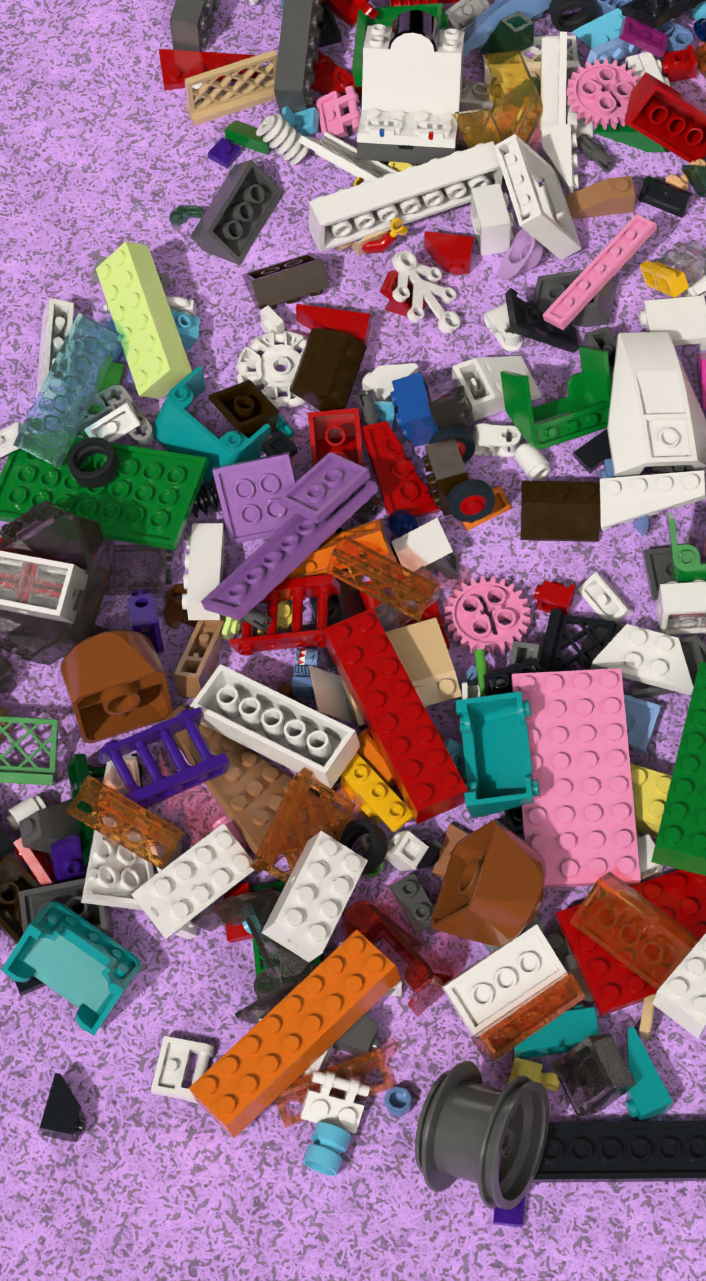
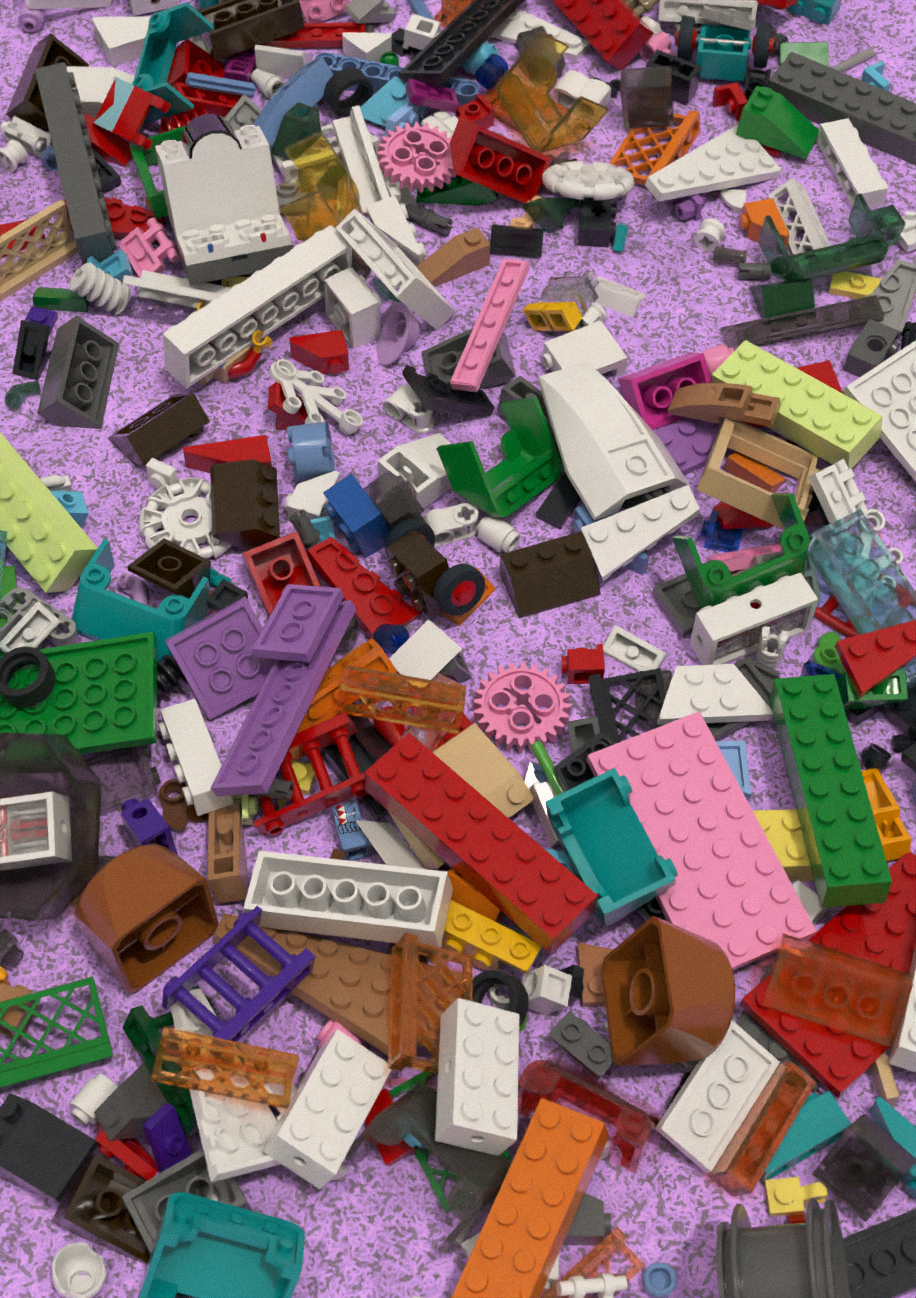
camera: 25 degrees left, 5 degrees down
(206, 177) = (32, 349): none -> black slope
(214, 415) = (134, 587): none -> lavender arm
(402, 339) = (310, 450): none -> medium blue brick

